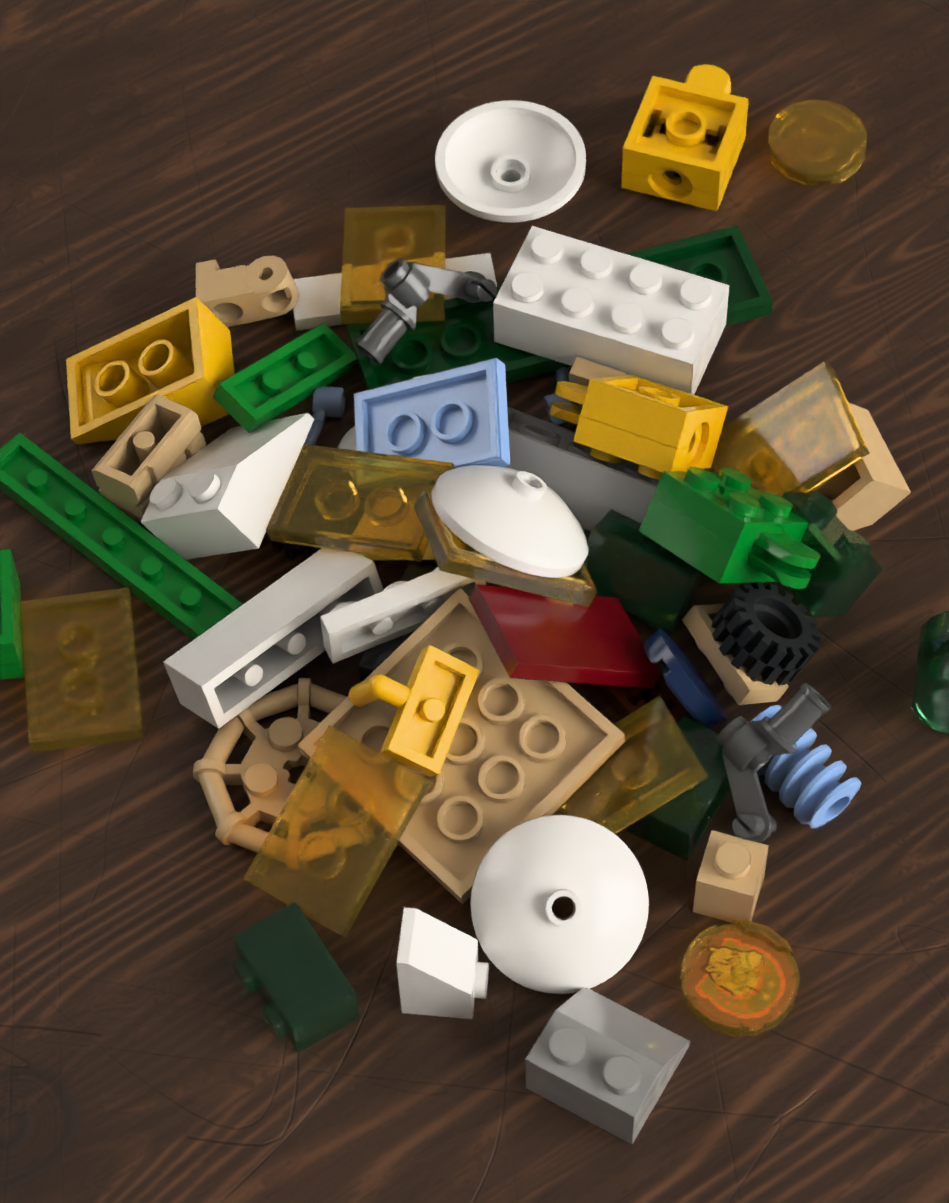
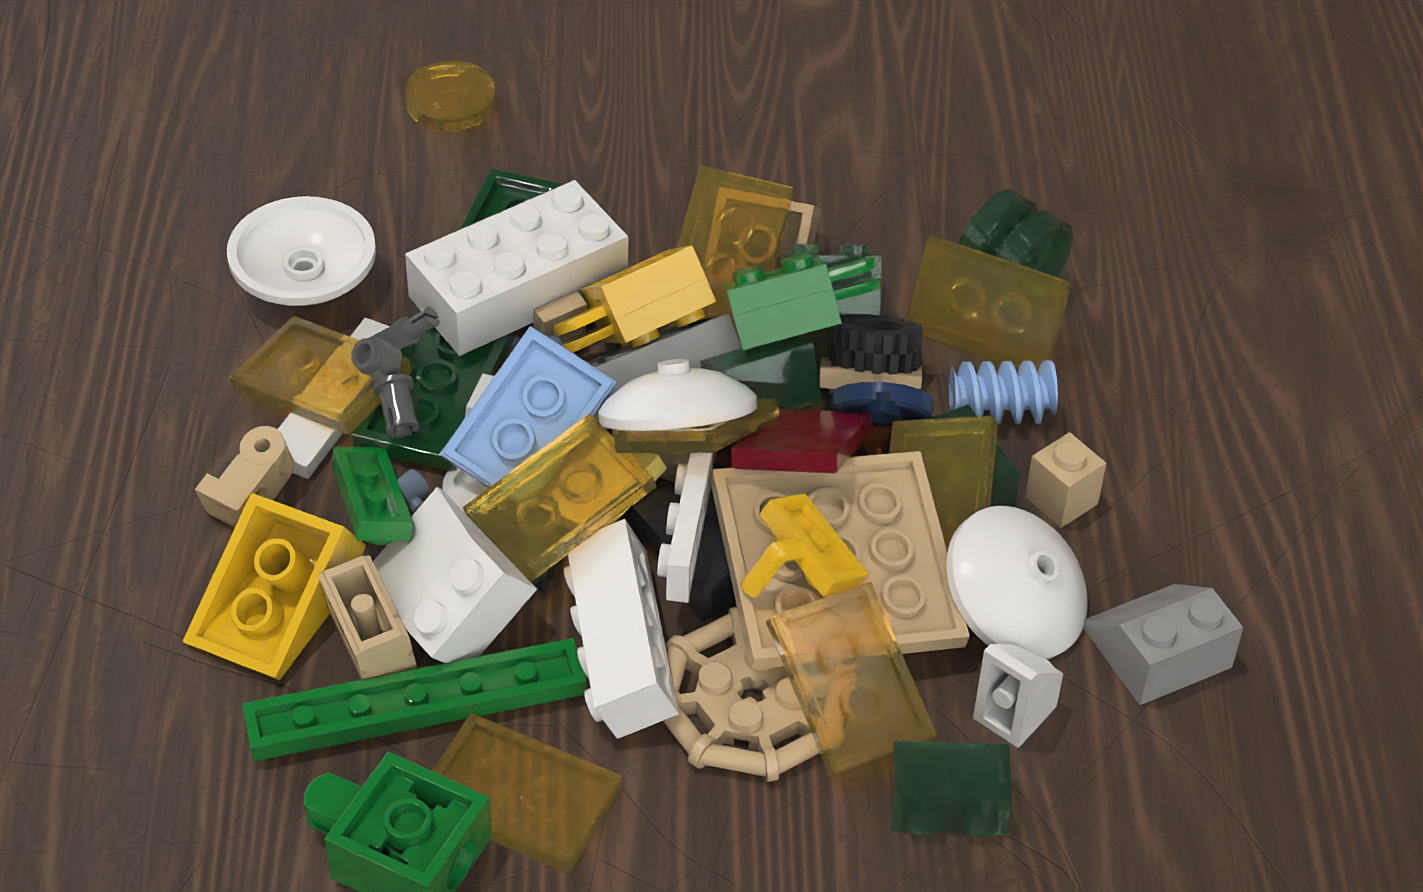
camera: 60 degrees left, 10 degrees down
(687, 131) = (387, 148): yellow brick -> none
(740, 978) = (1141, 528): clear yellow tile -> none
(752, 744) = (984, 395): dark grey pin -> none
(889, 693) = (987, 304): none -> clear yellow tile

